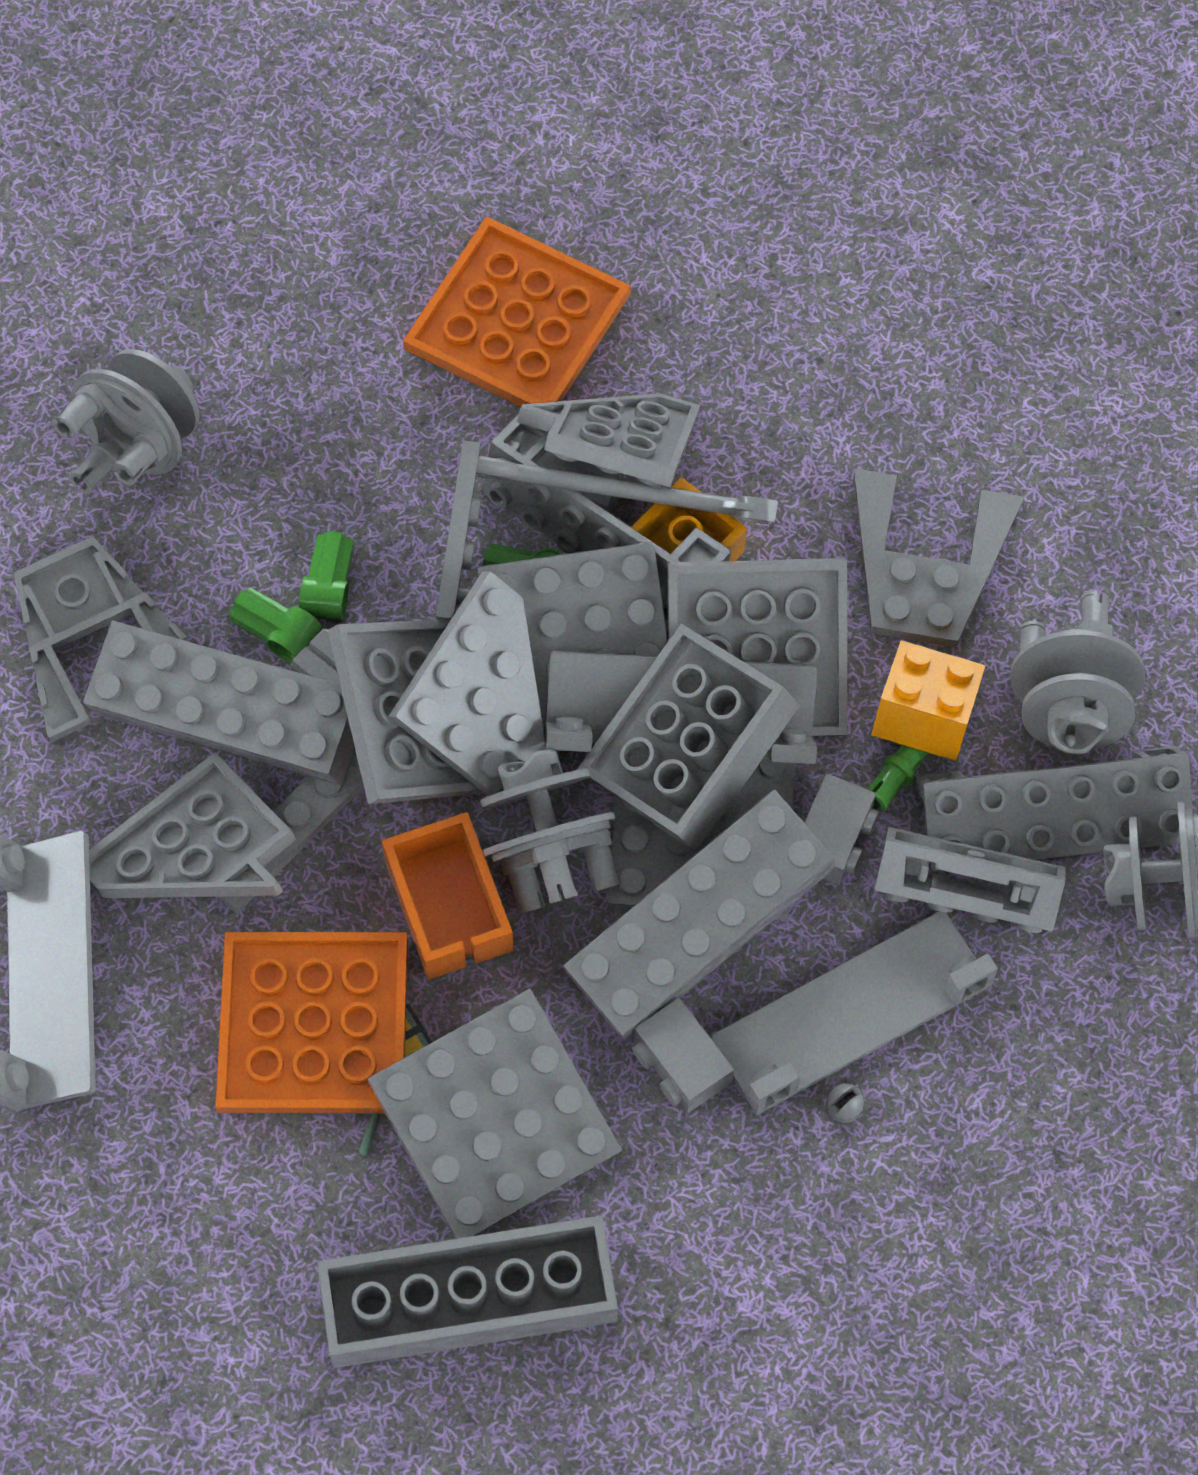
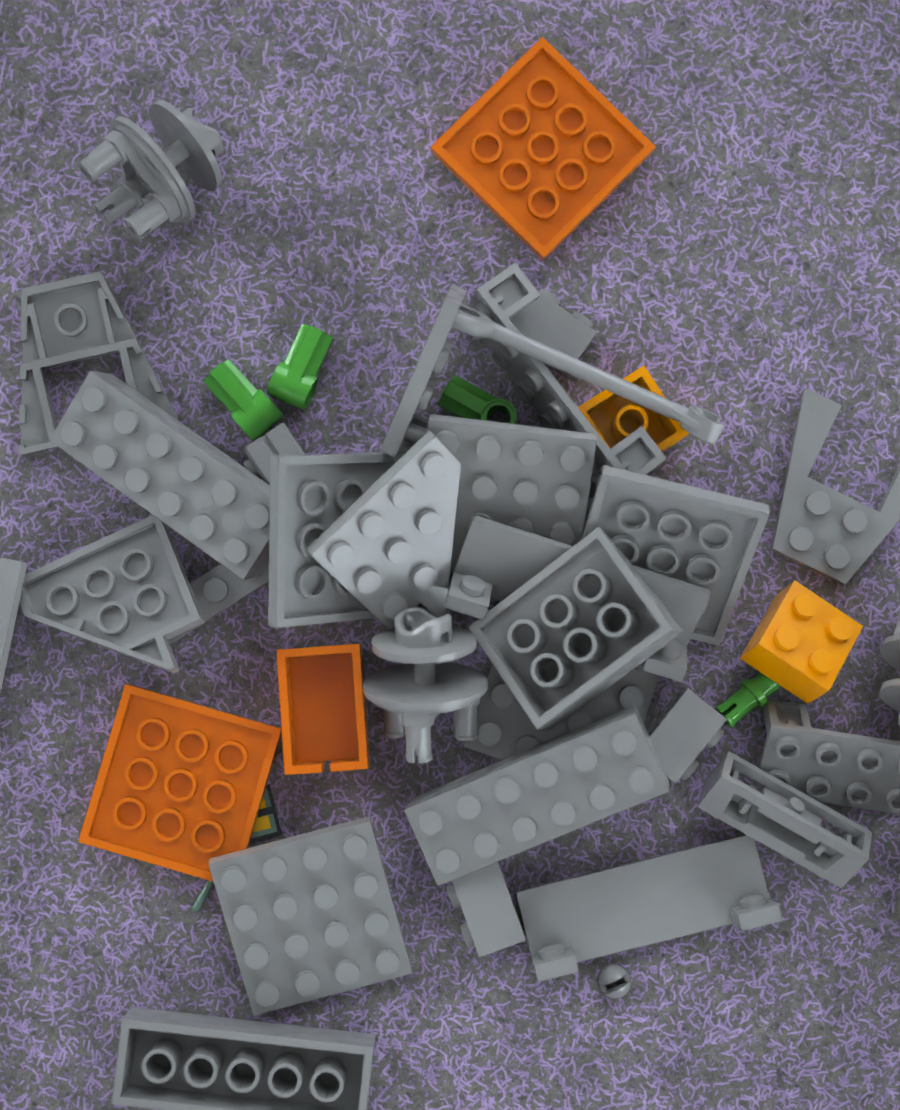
camera: 15 degrees right, 20 degrees up
(618, 434) = (600, 309): light grey wing -> none

